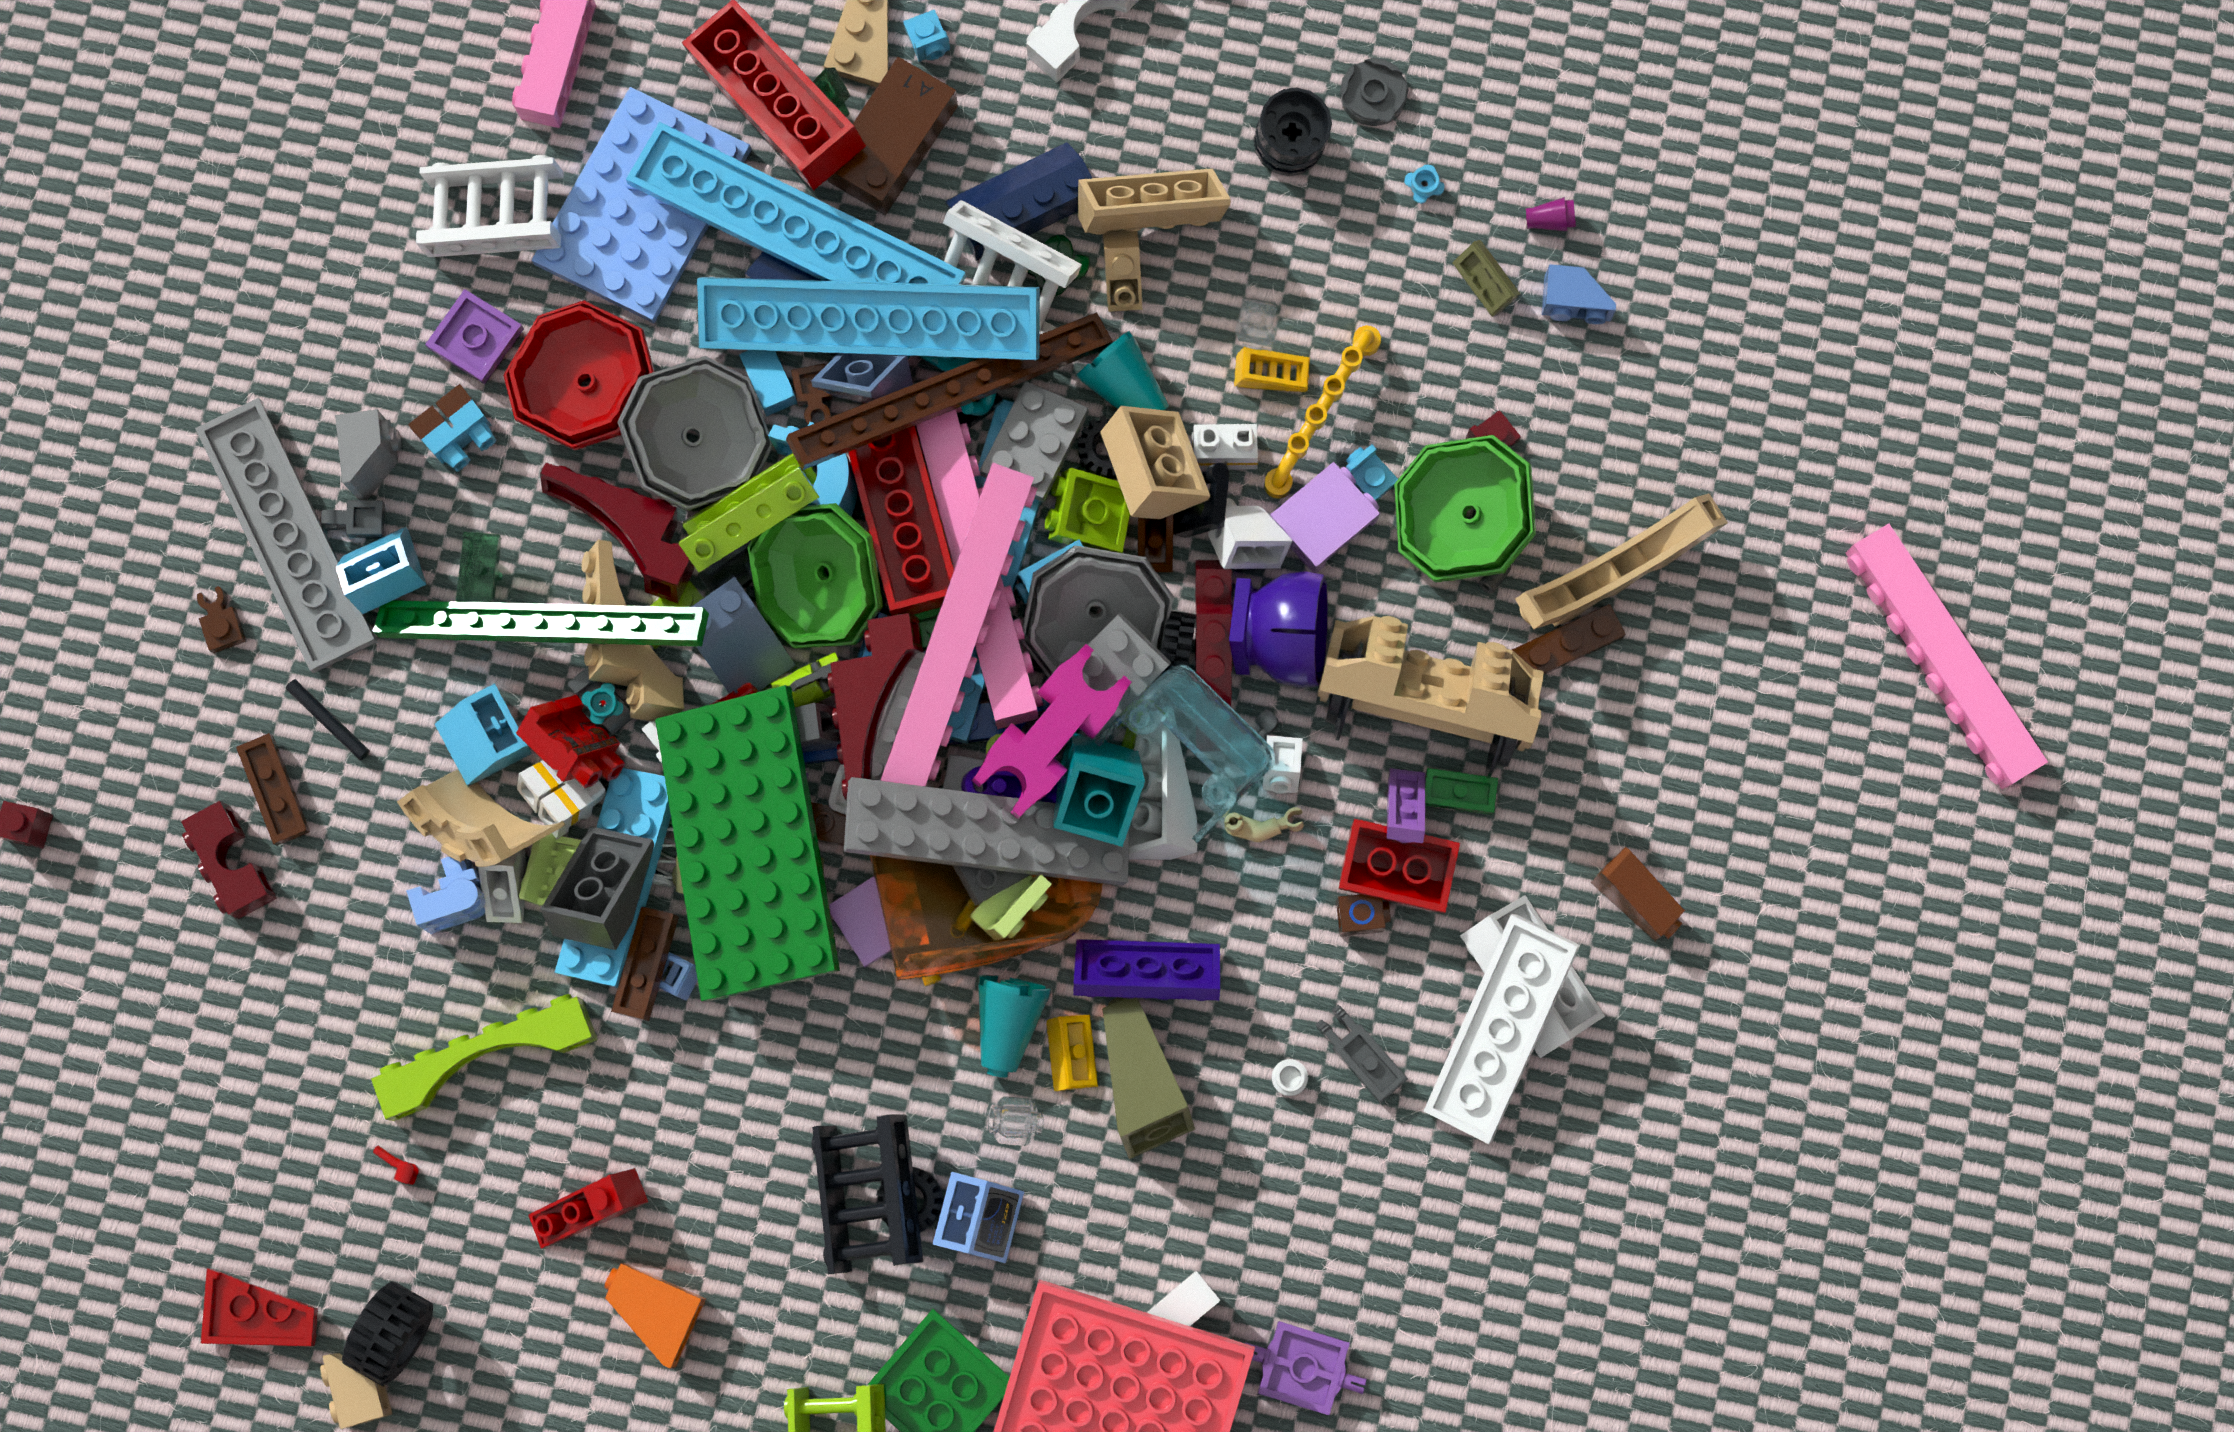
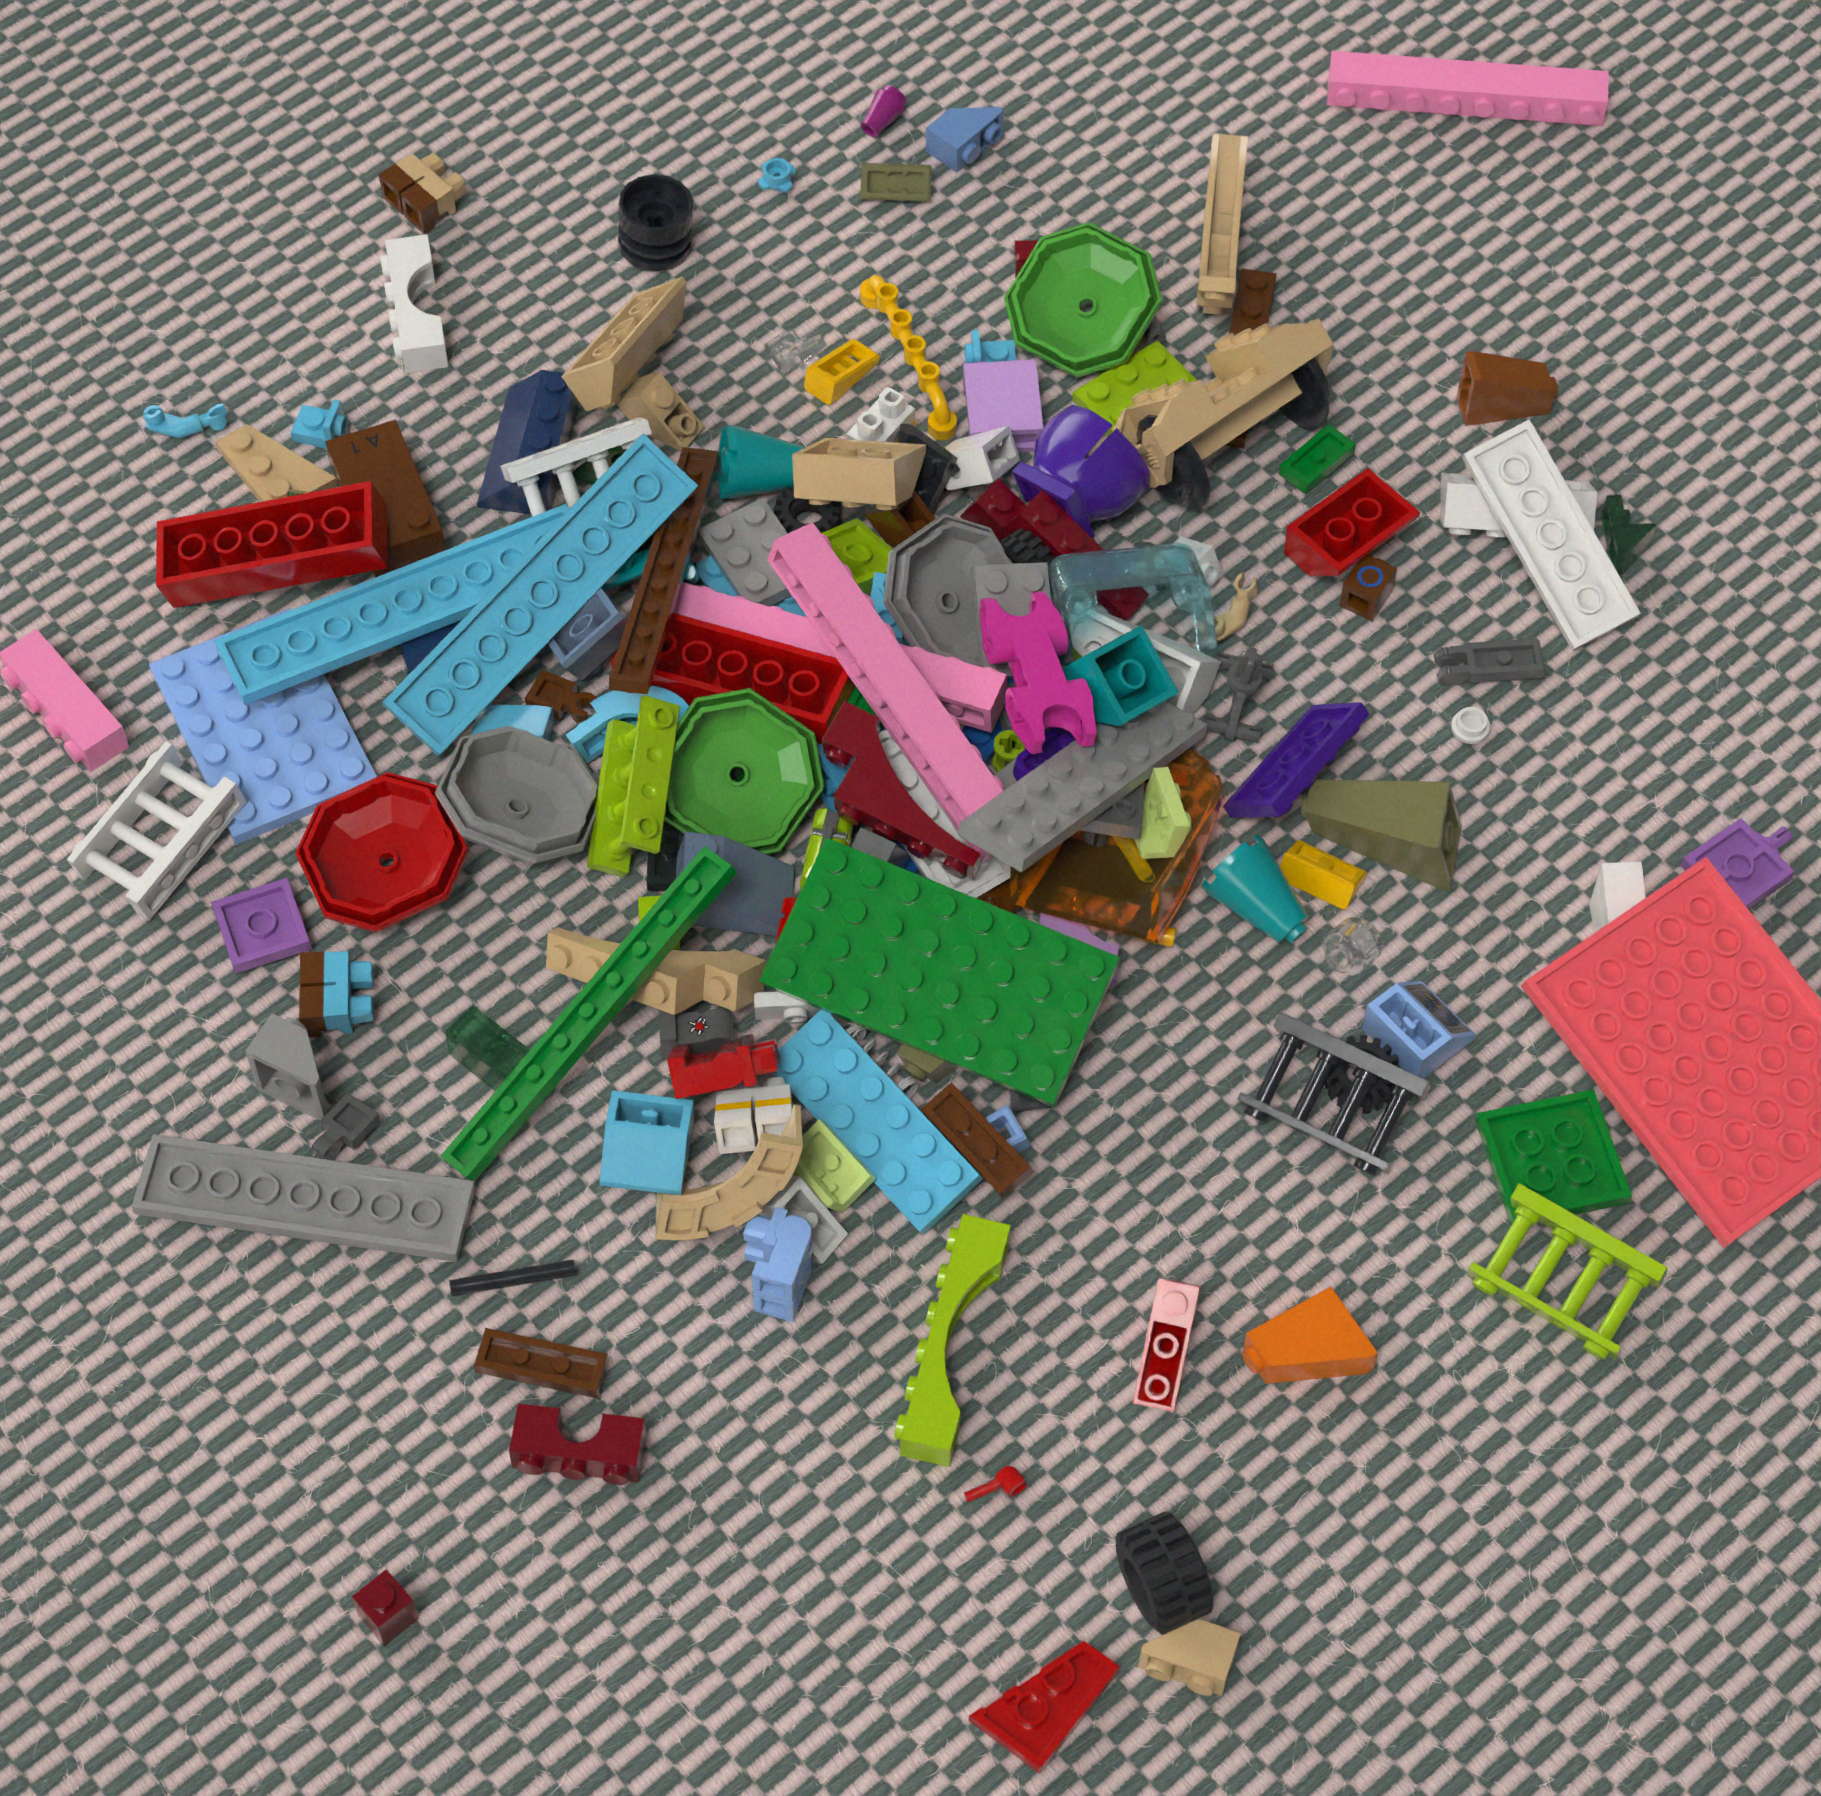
camera: 55 degrees left, 20 degrees down
(221, 625) = (339, 1314): reddish brown plate -> none
(380, 571) = (416, 1127): medium azure slope -> none
(599, 888) = (880, 1122): dark grey slope -> none
(612, 706) = (705, 1009): teal plate -> none
(636, 521) = (557, 897): dark red arch -> none
(1185, 883) = (1244, 679): none -> dark grey axle
(1373, 92) = (668, 157): dark grey tile -> none
(1406, 806) = (1305, 487): medium lavender plate -> none
(1436, 613) = (1113, 389): none -> lime plate
(1556, 1086) = (1624, 540): none -> clear green slope

